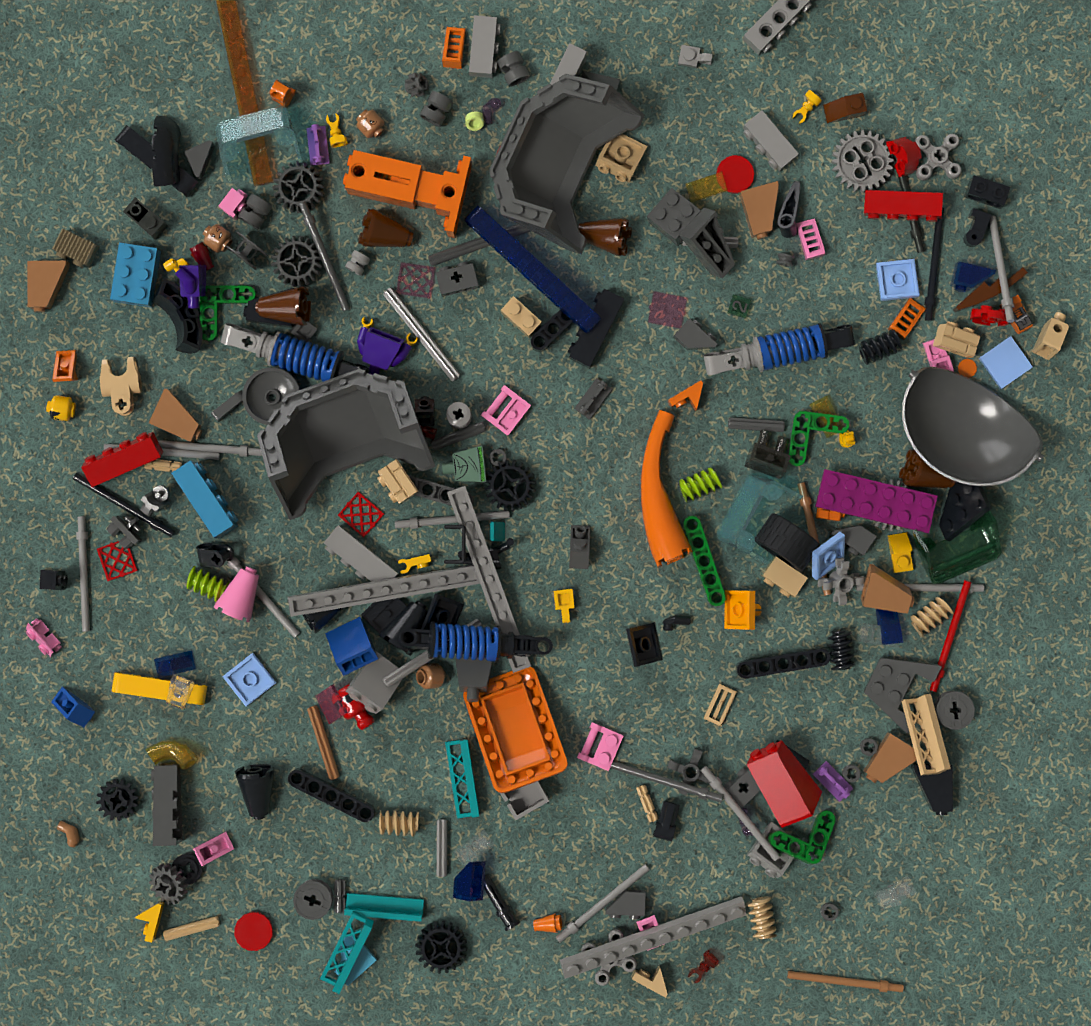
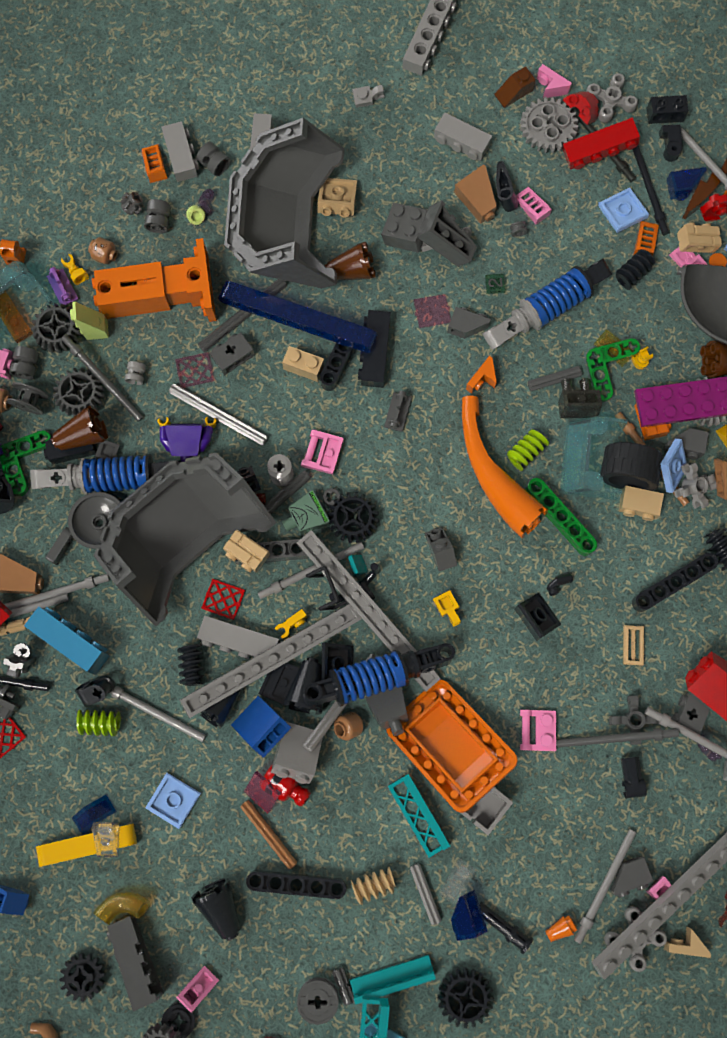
camera: 20 degrees left, 10 degrees down
(240, 595) = (133, 719): bright pink cone -> none
(308, 565) = (190, 665): none -> black piece
(332, 197) = (90, 322): none -> yellowish green slope
(383, 231) = (148, 336): reddish brown cone -> none
(647, 803) = (606, 768): tan axle -> none
(706, 187) = (424, 193): clear yellow tile -> none
(737, 173) = (443, 176): red tile -> none
(740, 610) = (615, 547): light orange tile -> none
(812, 99) = (483, 92): yellow piece -> none
(889, 121) = (555, 83): none -> bright pink slope

